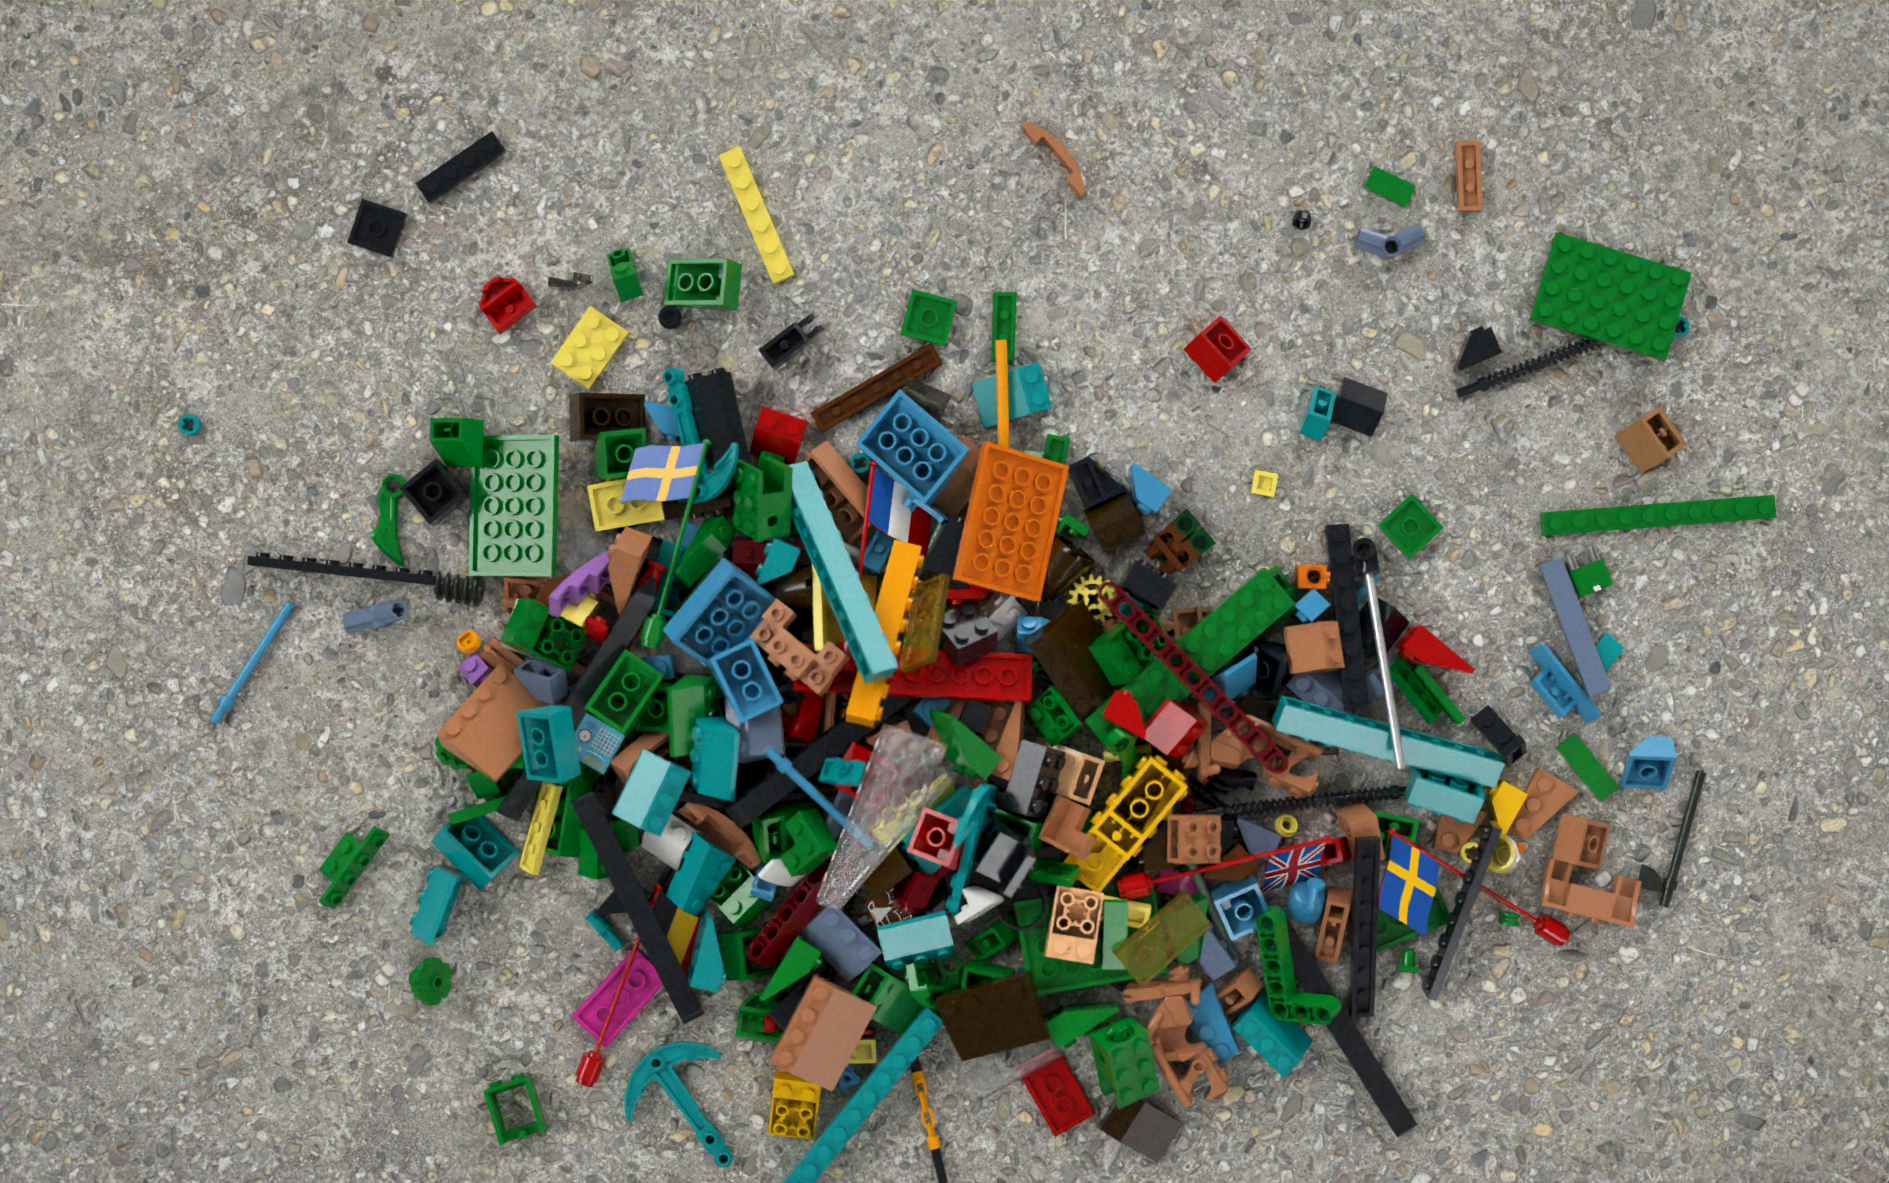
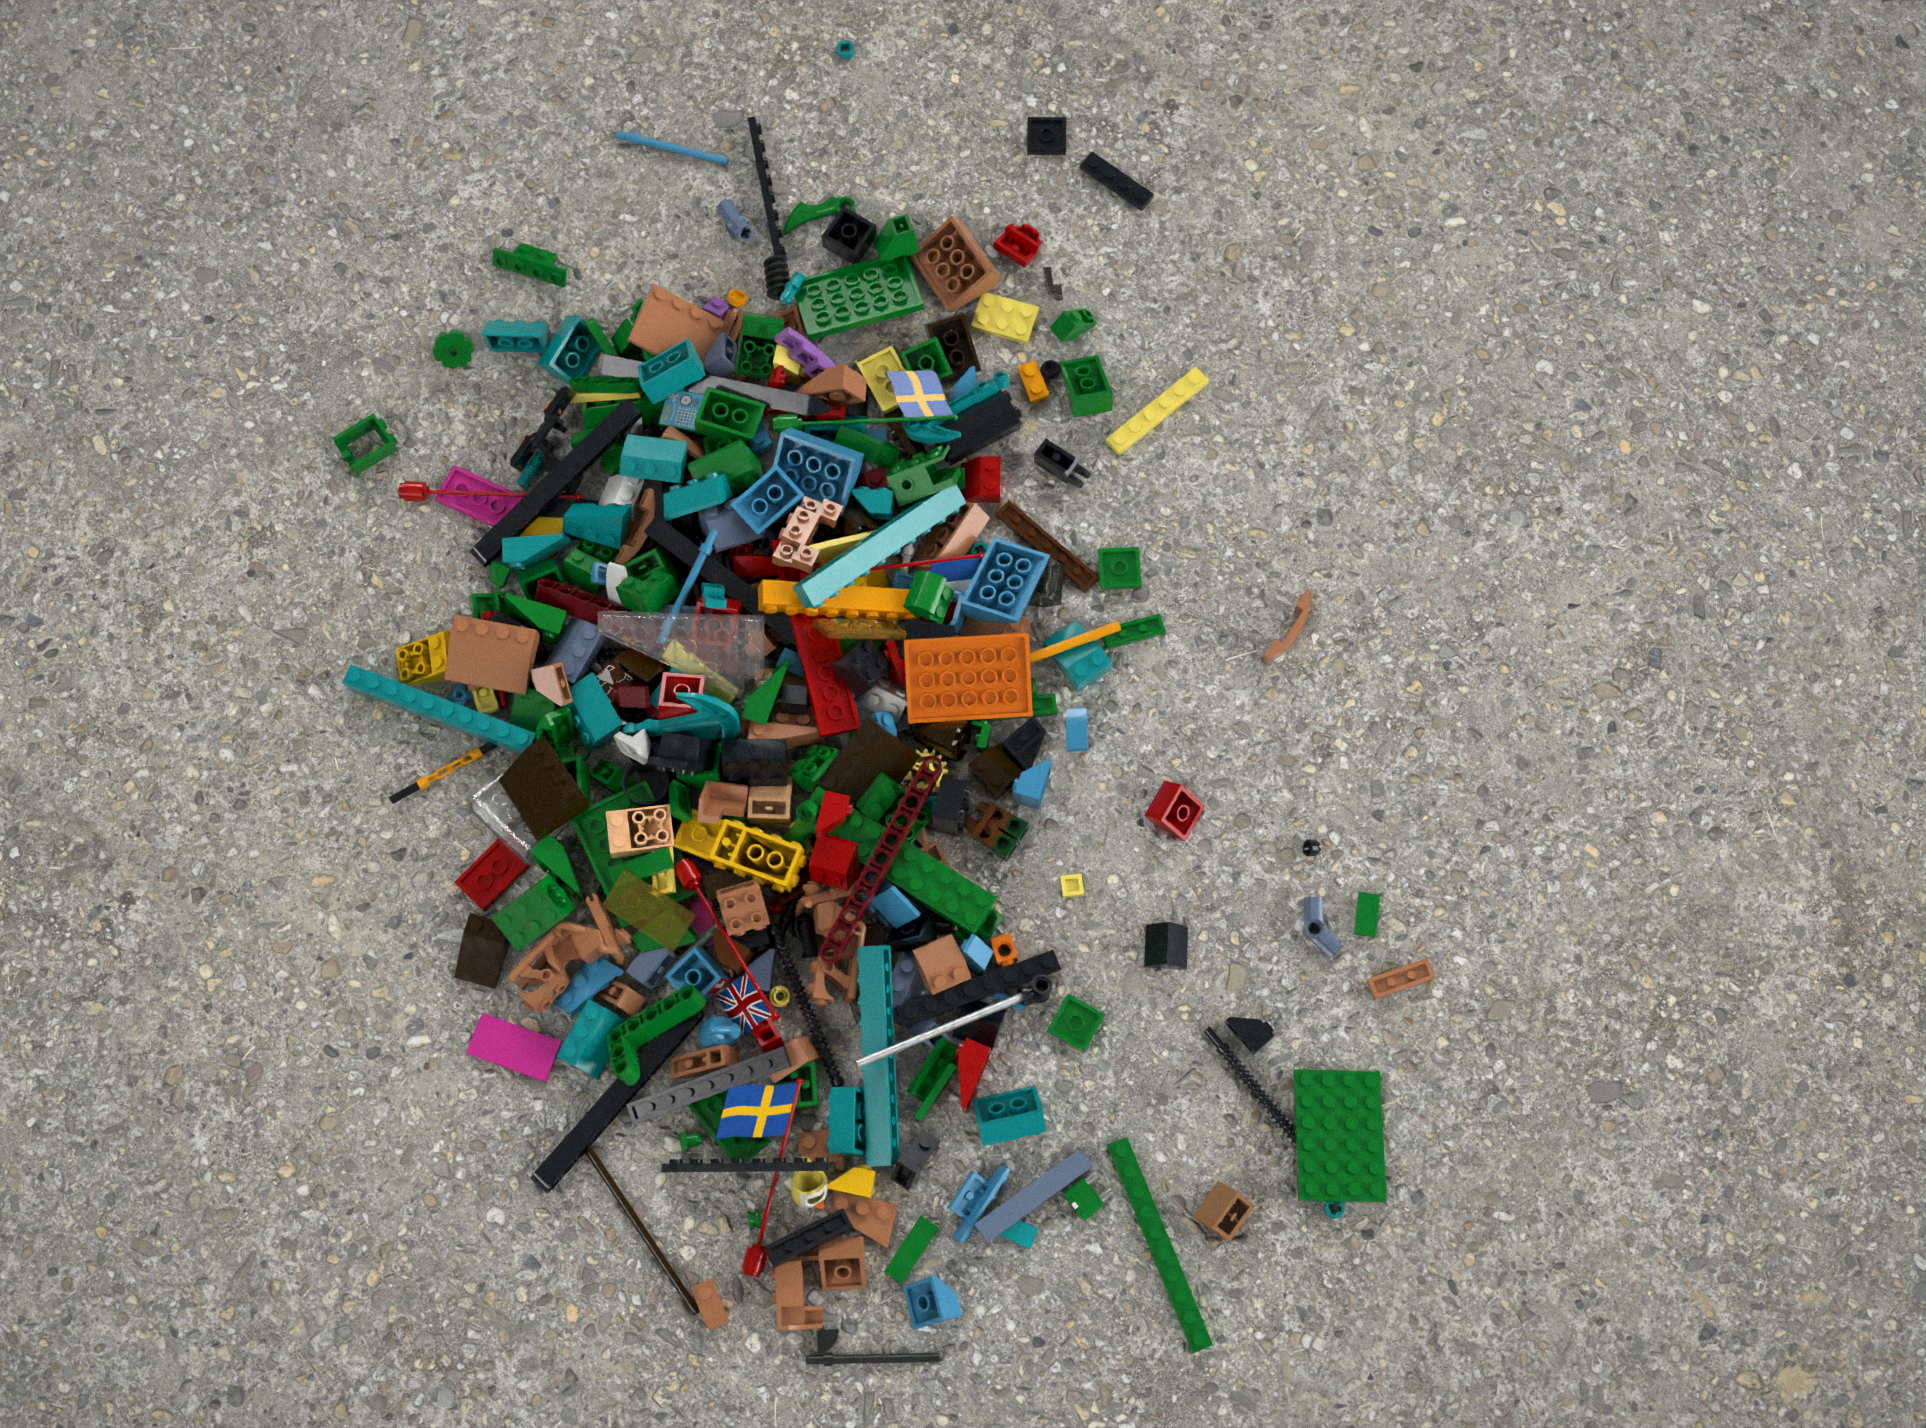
camera: 85 degrees right, 15 degrees down
(482, 576) = (792, 288): none -> teal axle
(510, 383) = (955, 265): none -> nougat slope
(522, 843) = (595, 384): none -> green beam
(577, 912) = (532, 442): none -> black piece
(673, 1085) = (411, 567): teal piece -> none
(677, 341) = (1033, 382): none -> light orange plate
(720, 1000) = (498, 574): none -> green slope
(877, 975) = (552, 683): none -> nougat slope
(907, 536) = (928, 596): none -> green brick
(1096, 423) = (1076, 729): none -> dark azure slope
(1252, 1118) = (514, 1047): none -> dark pink tile
(1317, 413) = (1147, 911): teal slope -> none
(1484, 625) = (1009, 1115): none -> teal slope
(1485, 1035) = (642, 1231): none -> dark brown piece
(1552, 869) = (808, 1238): none -> black plate
(1579, 987) = (710, 1304): none -> nougat slope

